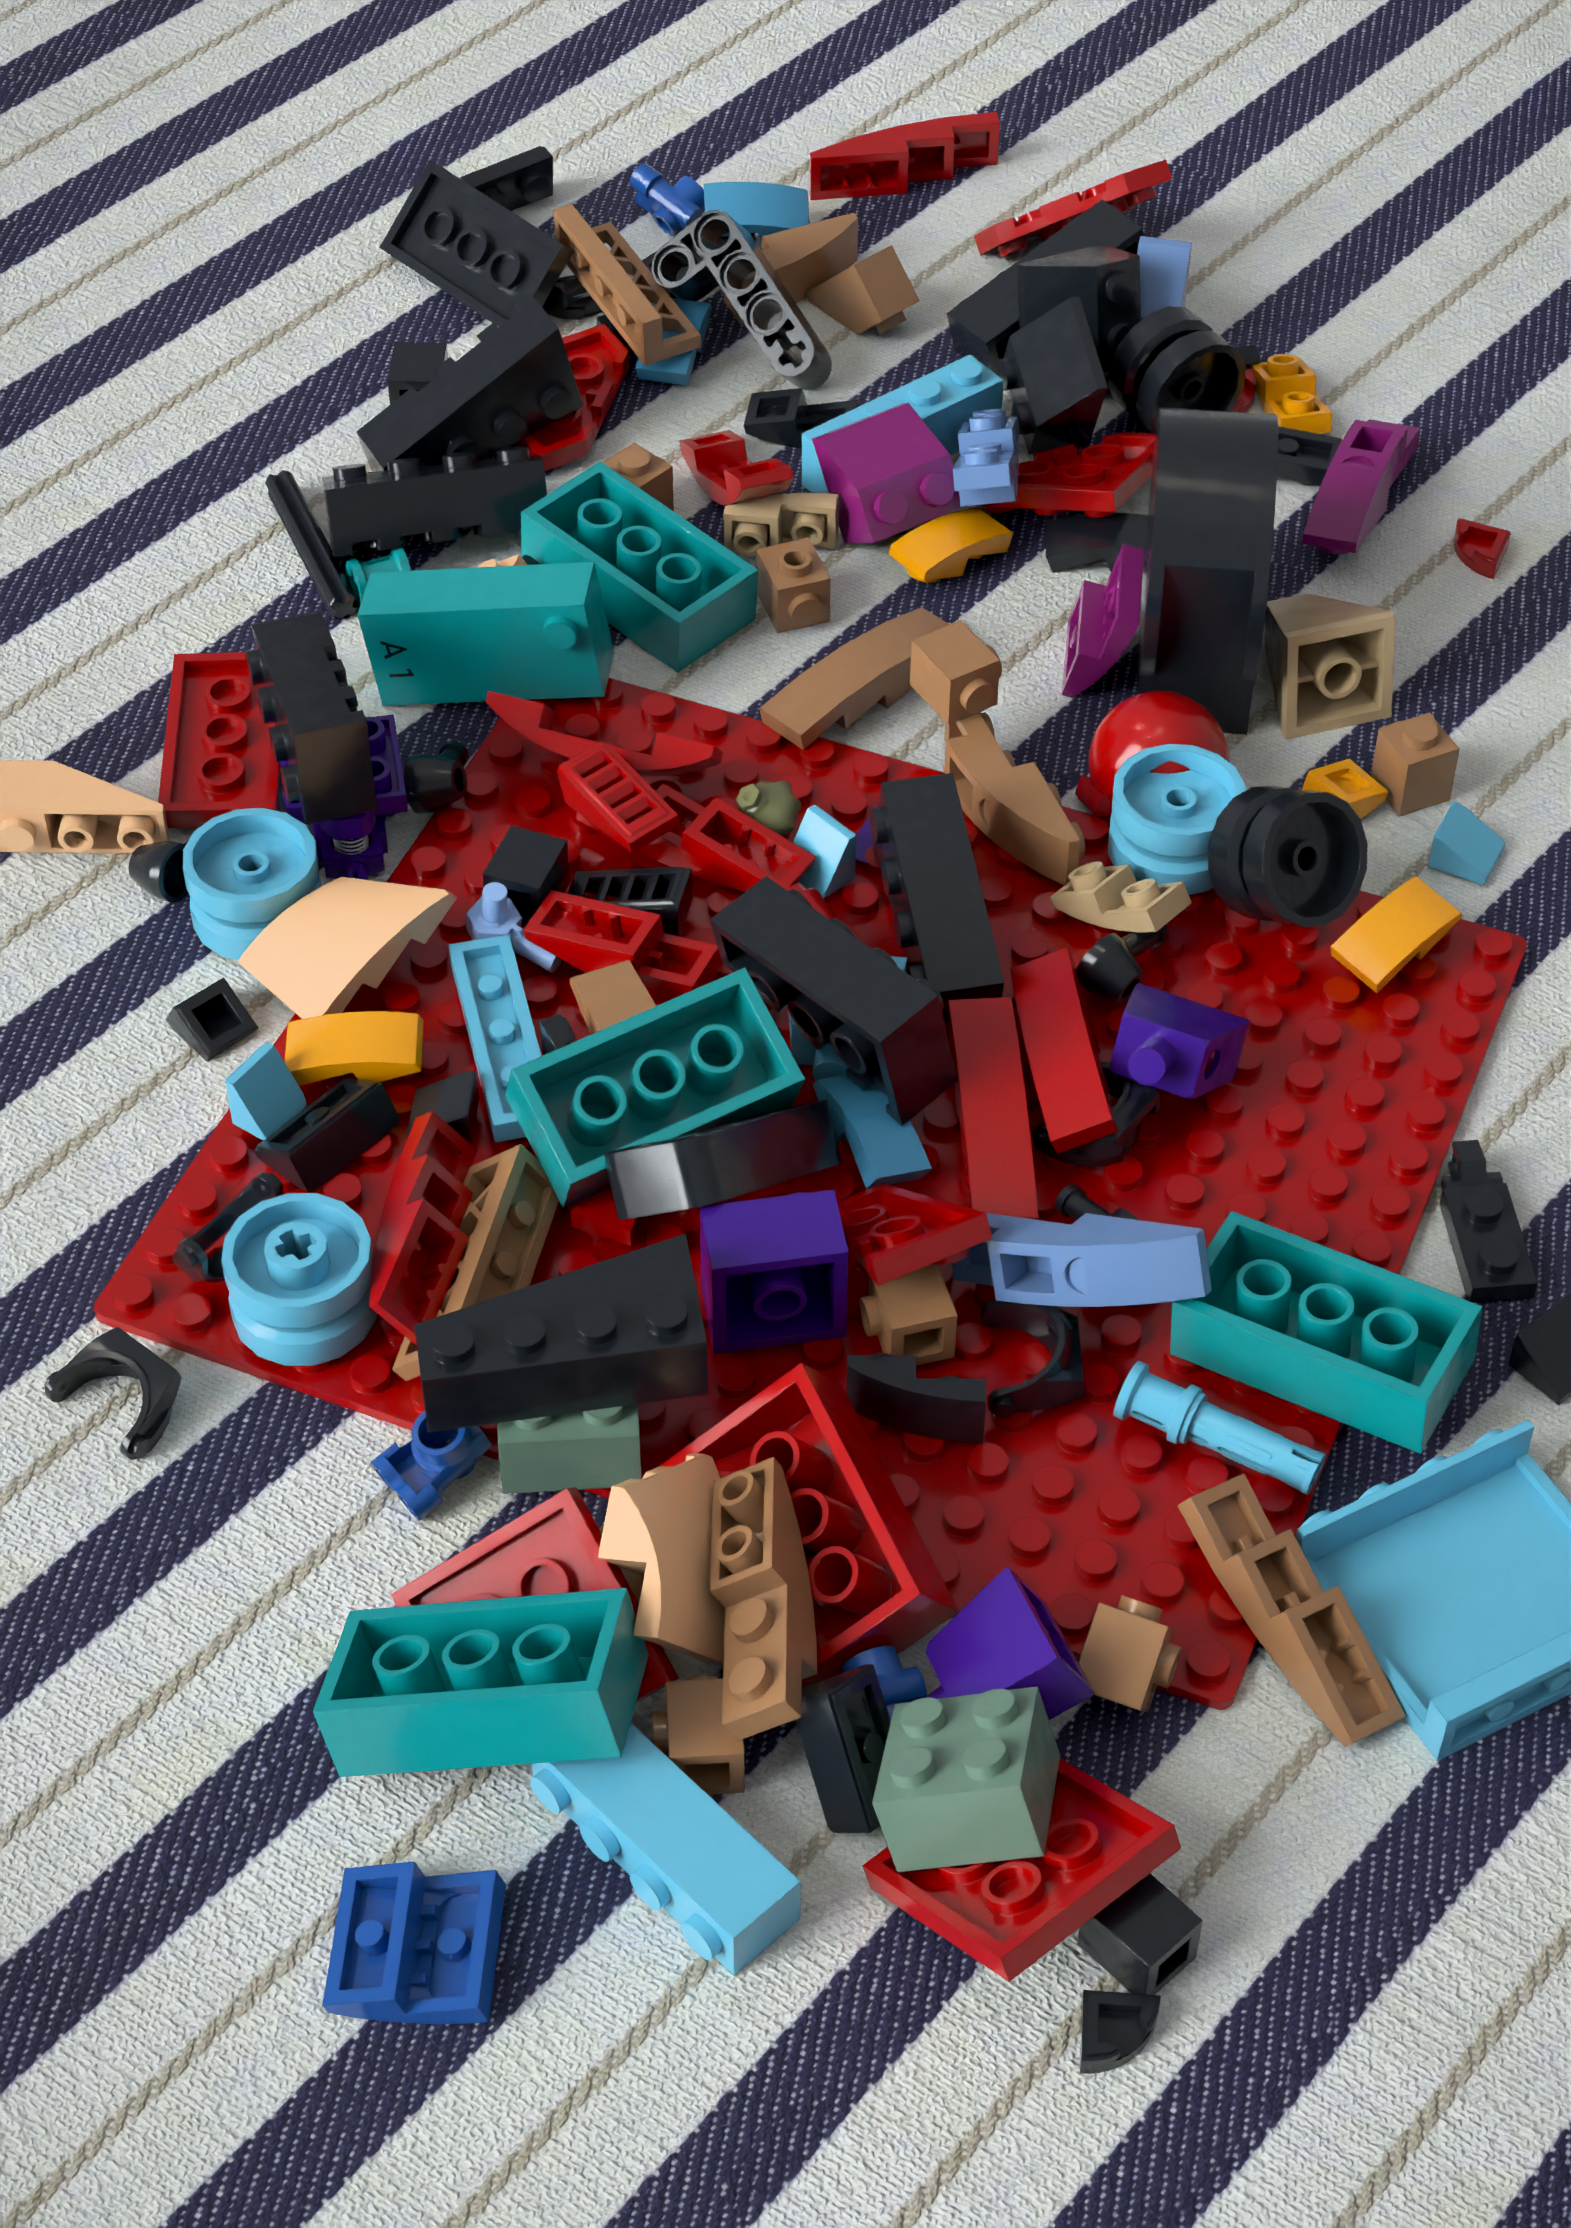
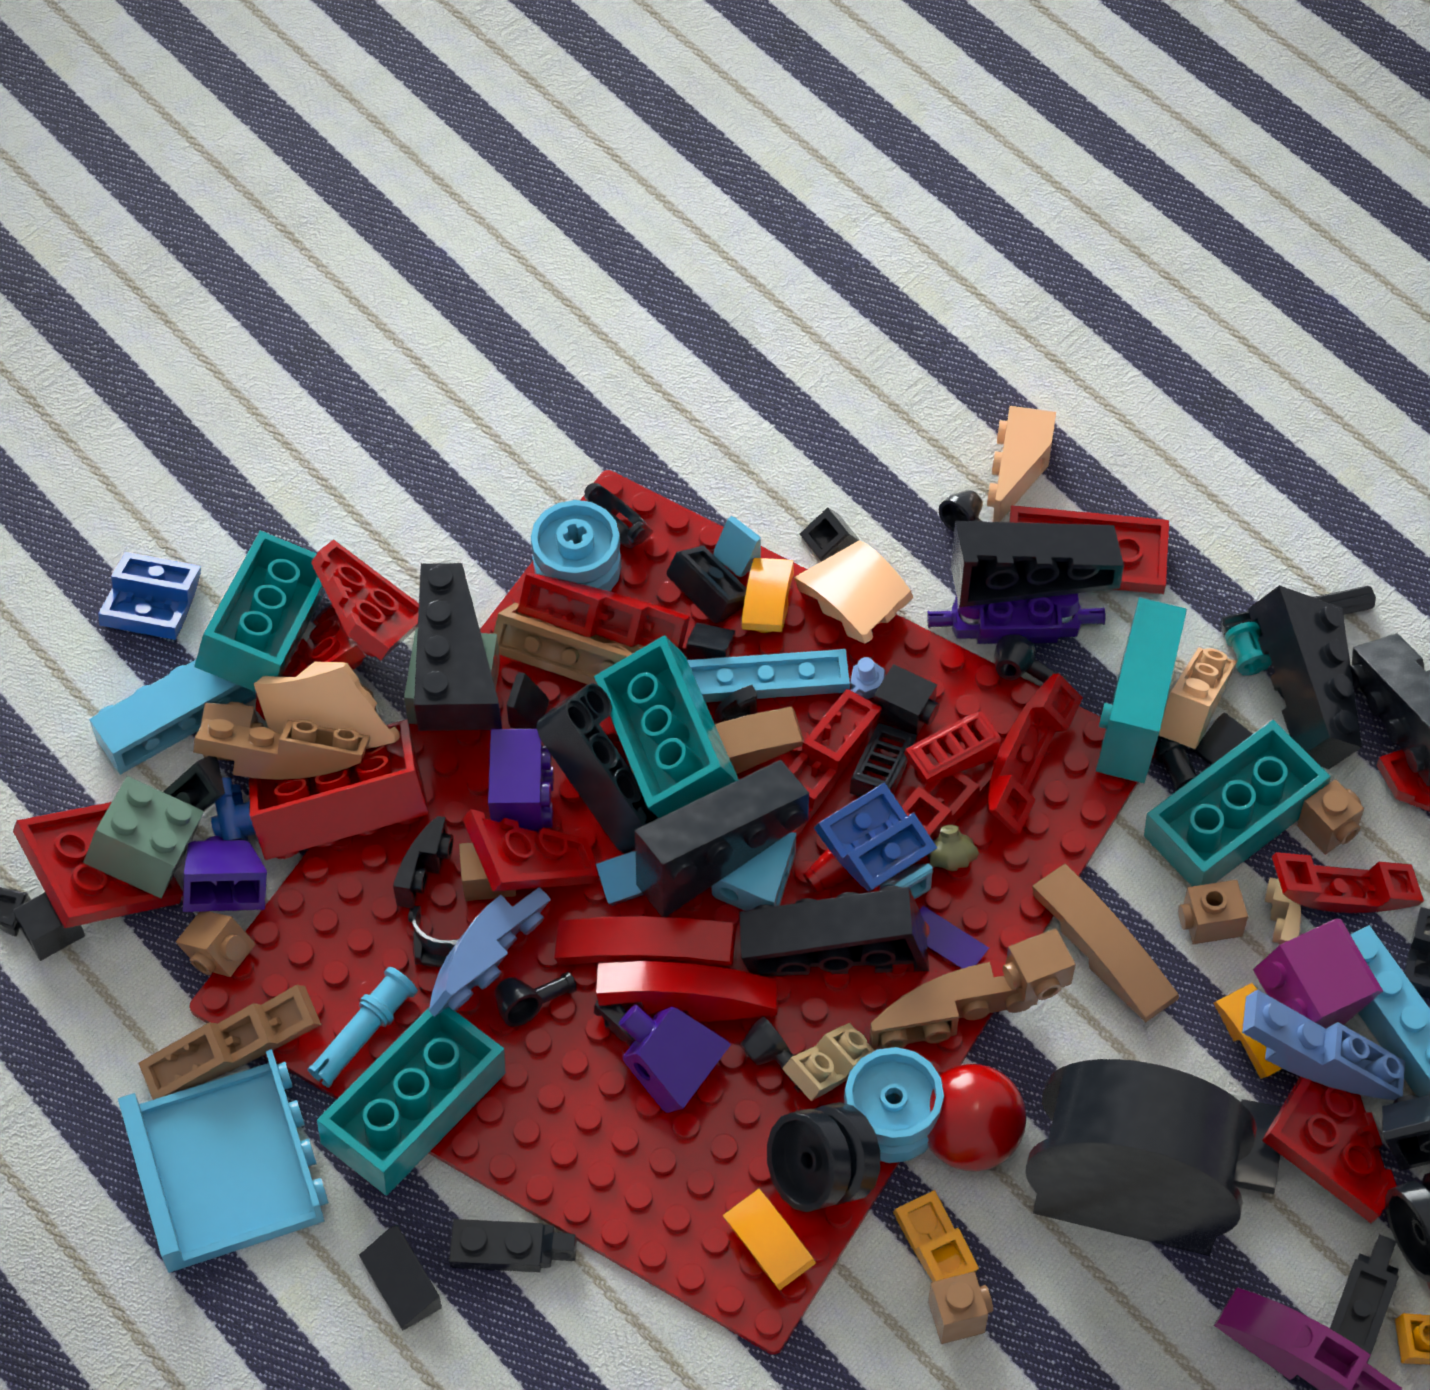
camera: 100 degrees right, 10 degrees up
(121, 1355) = (542, 489): black helmet -> none
(245, 874) = (921, 547): medium azure wheel -> none
(458, 1514) = (367, 603): none -> red plate
(786, 847) = (875, 837): none -> blue slope
(1329, 663) = (1085, 1261): tan slope -> none
(1465, 846) = (876, 1332): medium azure slope -> none

